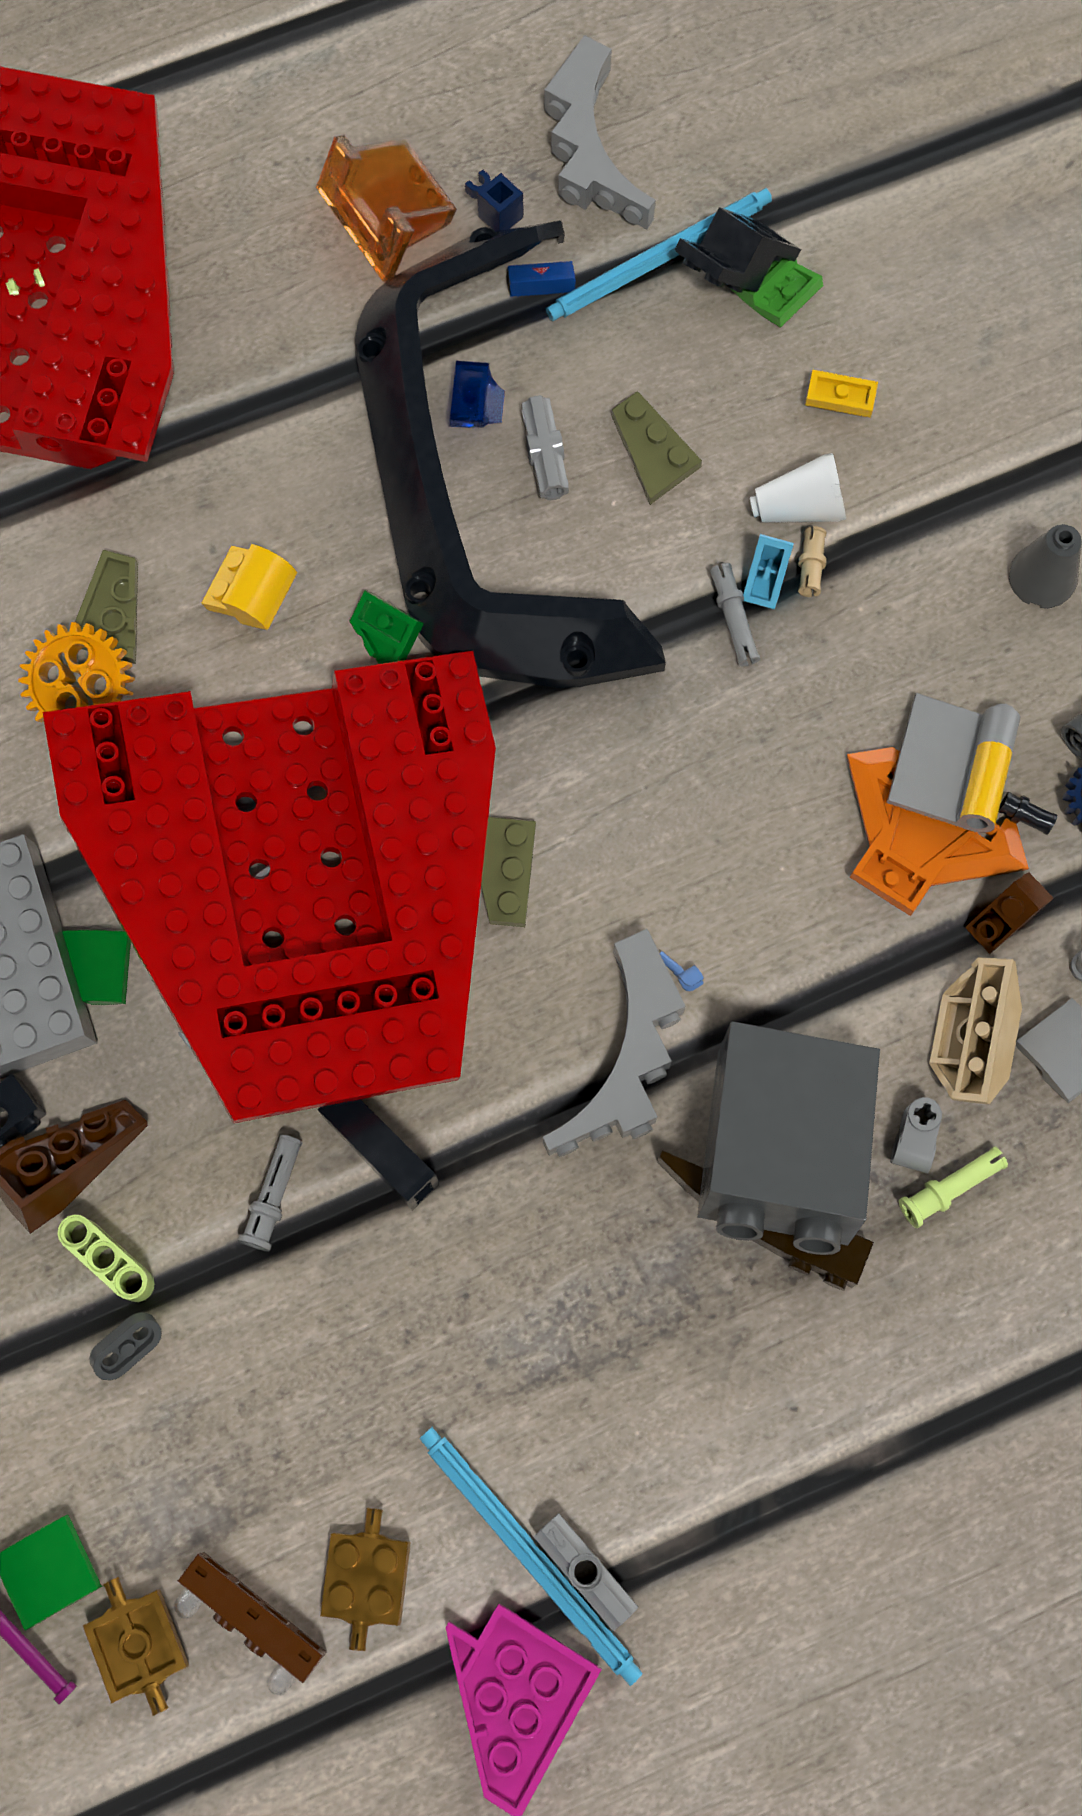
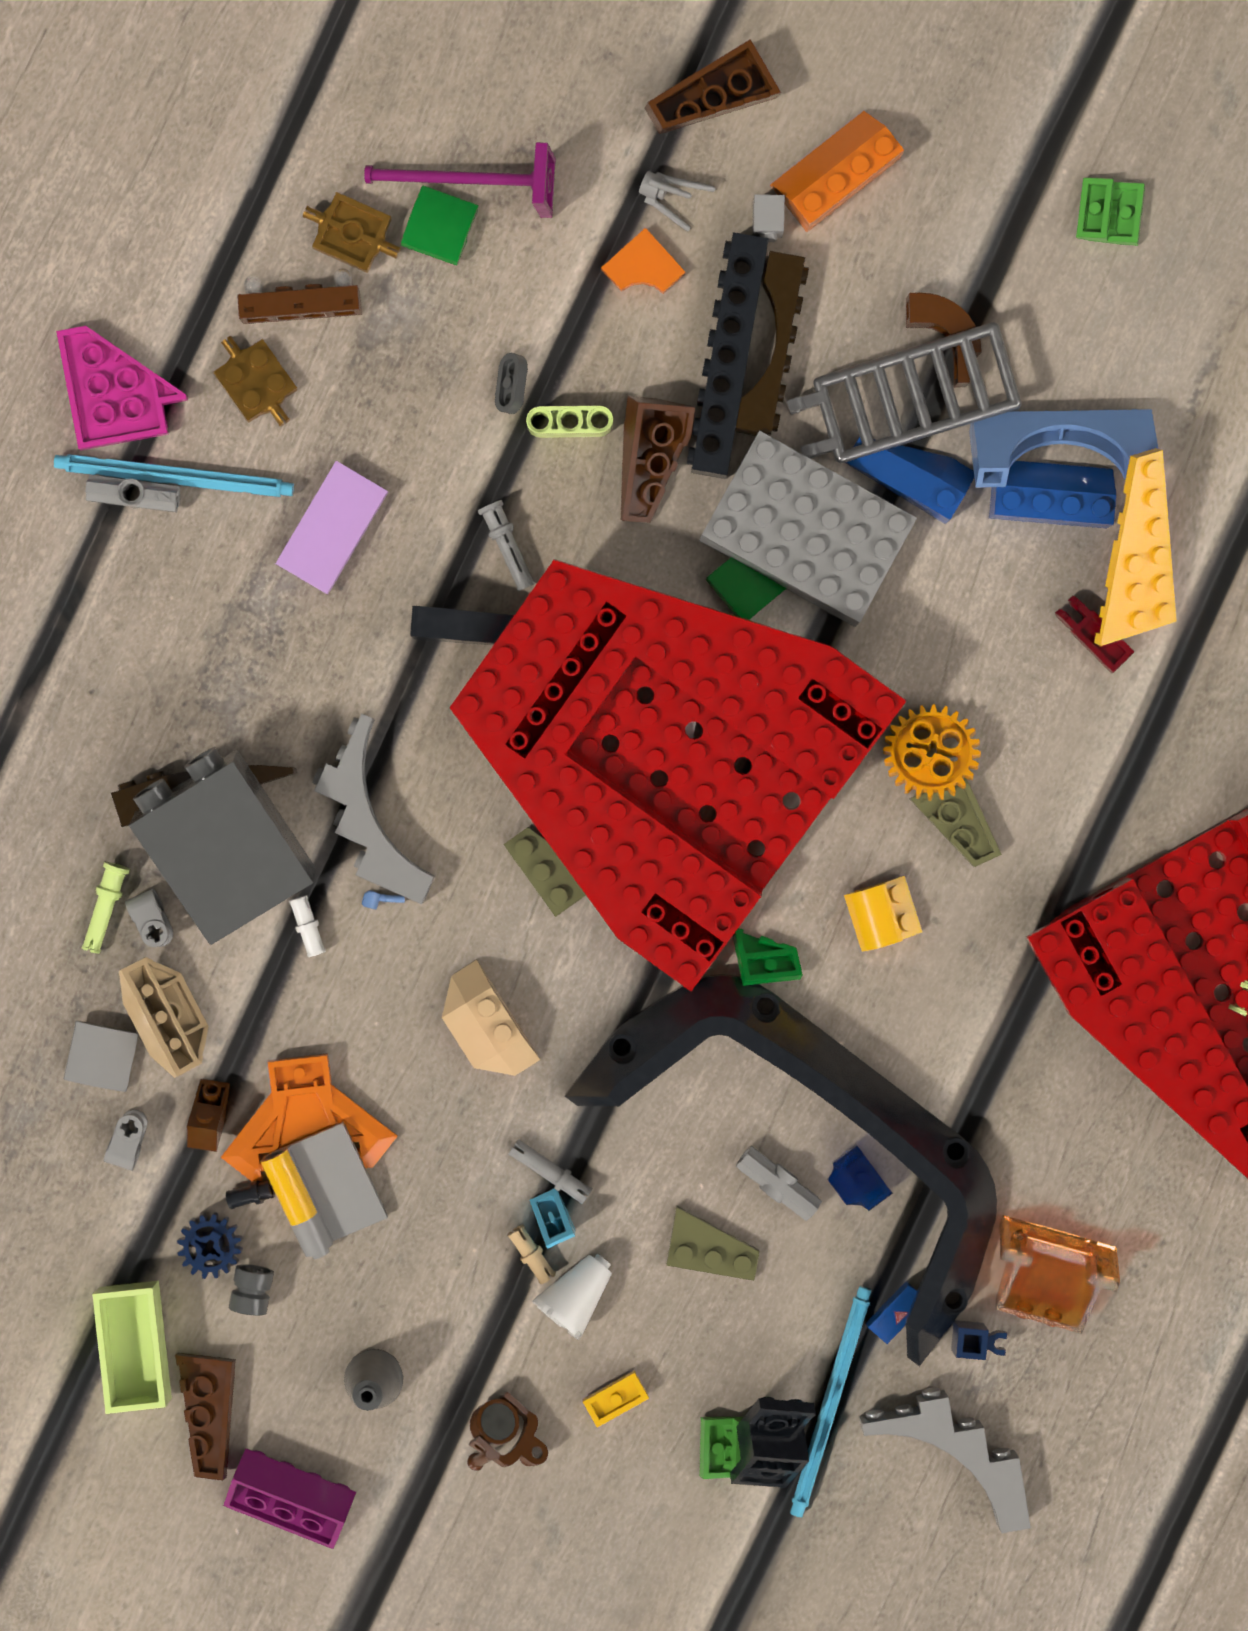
camera: 145 degrees right, 15 degrees up
(420, 1359) = (332, 527): none -> lavender tile
(682, 785) = (485, 1024): none -> tan wedge
(772, 1001) = (307, 926): none -> white pin
(964, 445) = (497, 1424): none -> reddish brown piece

